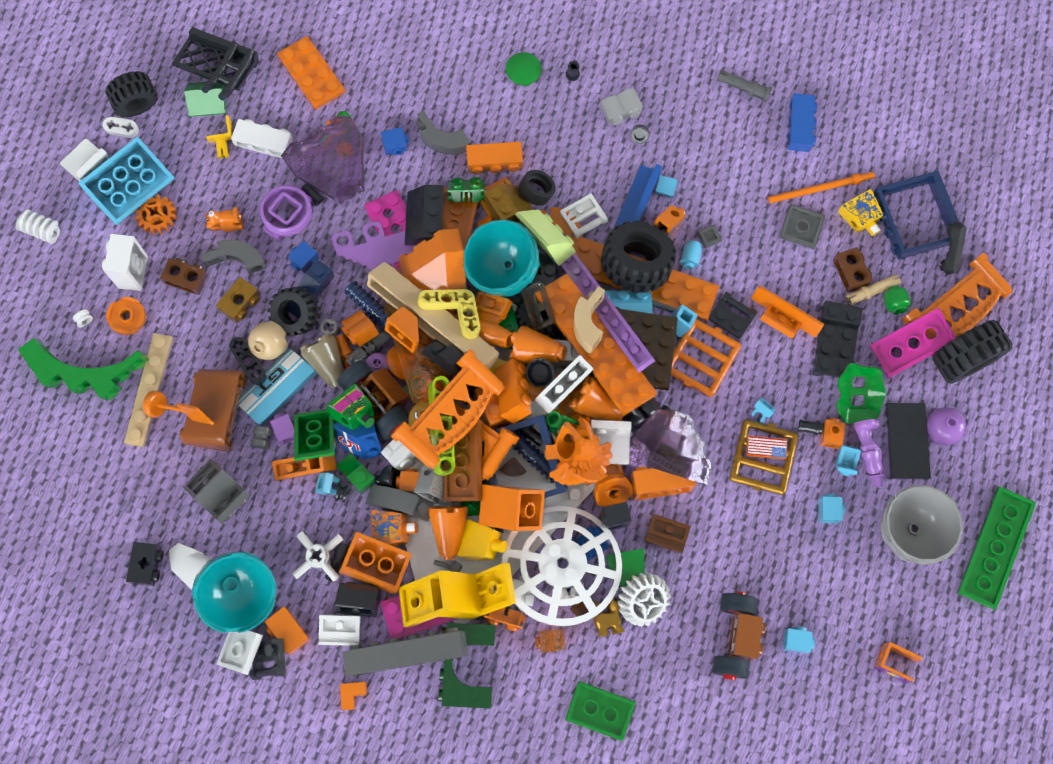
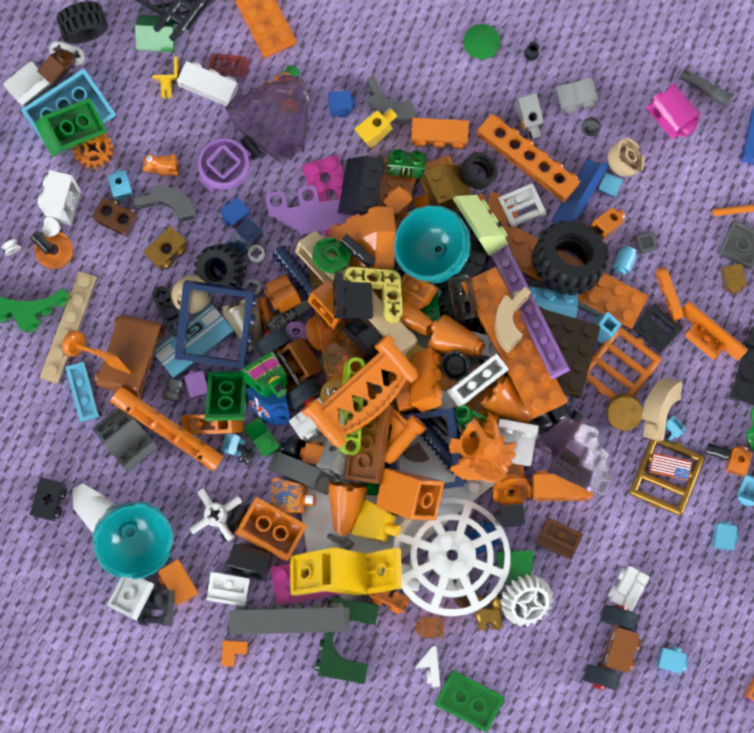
camera: 10 degrees right, 5 degrees up
(110, 137) = (57, 65): none -> reddish brown brick
(110, 307) = (38, 238): none -> black pin
(120, 293) = (51, 227): none -> white piece
(129, 193) = (70, 127): none -> green slope
(169, 451) = (82, 392): none -> medium azure plate
(186, 245) = (120, 185): none -> medium azure brick
(257, 475) = (166, 428): none -> orange piece
(262, 364) = (249, 320): none -> dark blue window
(293, 114) = (242, 72): none -> clear red slope
(324, 291) = (251, 250): none -> white bush
(399, 290) = (327, 263): none -> green tile
(427, 320) = (351, 299): none -> black bracket
(428, 274) = (358, 251): none -> black pin
(431, 158) = (370, 132): none -> yellow torso
(464, 222) = (399, 199): none -> orange brick
(555, 675) = (431, 660): none -> white slope
(571, 122) = (524, 106): none -> light grey torso
(587, 179) = (562, 191): none -> orange brick
(676, 158) = (625, 158): none -> tan cylinder
(713, 399) = (624, 411): none -> pearl gold head
(717, 110) = (674, 112): none -> dark pink cylinder
(736, 276) = (668, 289): none -> orange beam
(744, 573) = (628, 588): none -> white brick
(745, 390) = (658, 405): none -> tan arch
(798, 258) = (733, 278): none -> pearl gold brick

